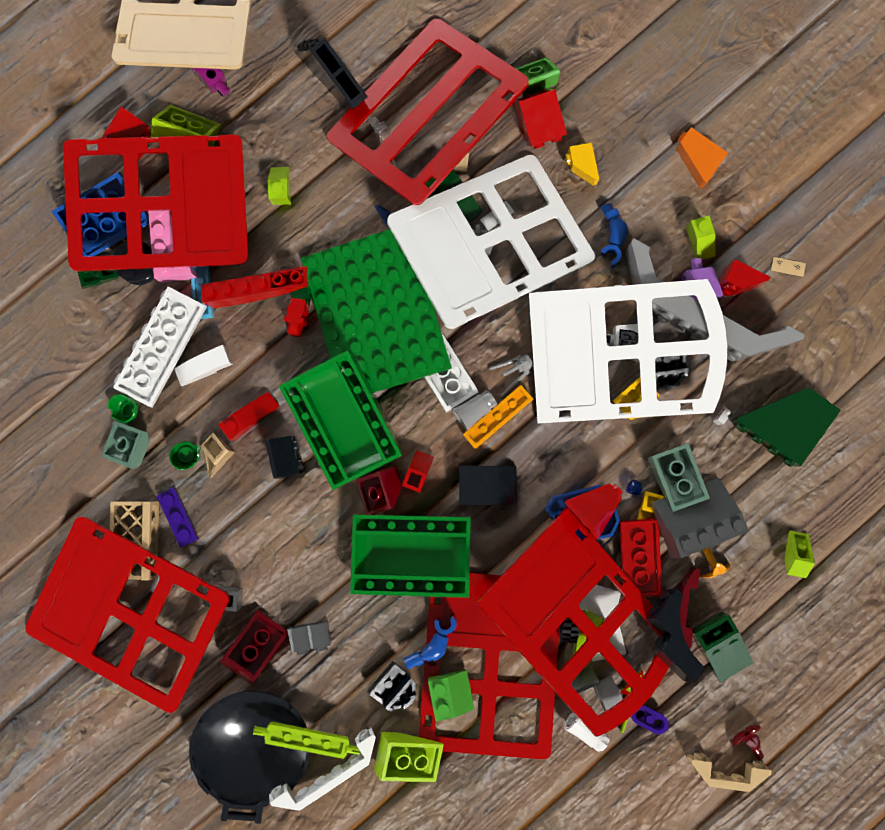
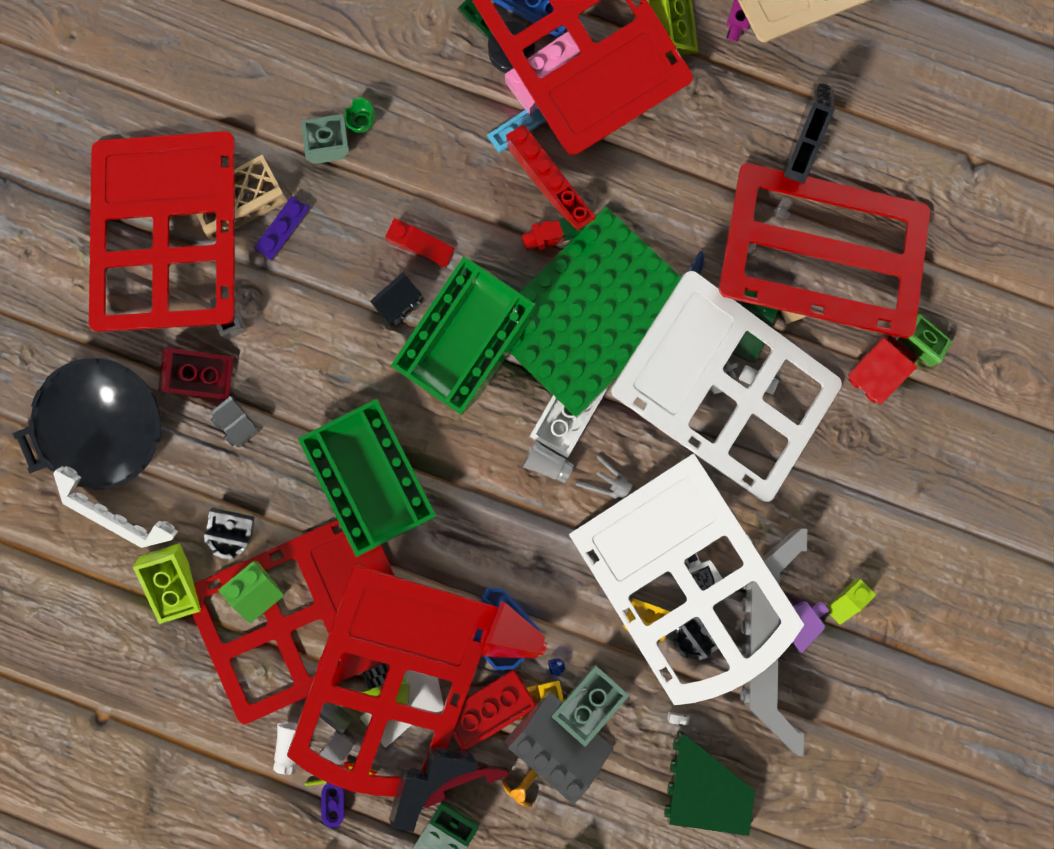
camera: 55 degrees right, 0 degrees up
(159, 347) = (439, 117): white bracket -> none
(184, 455) = (346, 201): green hair -> none
(203, 365) = (445, 170): white slope -> none
(215, 453) = (364, 231): tan slope -> none
(279, 186) = (667, 144): lime slope -> none
(306, 740) = (133, 473): lime plate -> none
(379, 490) = (415, 412): dark red slope -> none
(418, 471) = (454, 440): red slope -> none
(435, 648) = (288, 552): blue piece -> none
(487, 485) = (478, 517): black slope -> none
(498, 417) = (553, 490): light orange plate -> none
(583, 162) = (861, 437): yellow slope -> none
(619, 233) = (809, 512): blue piece -> none
(700, 155) = (936, 553): orange slope -> none
(740, 278) = (827, 661): red slope -> none
(788, 266) = (871, 706): tan sticker -> none

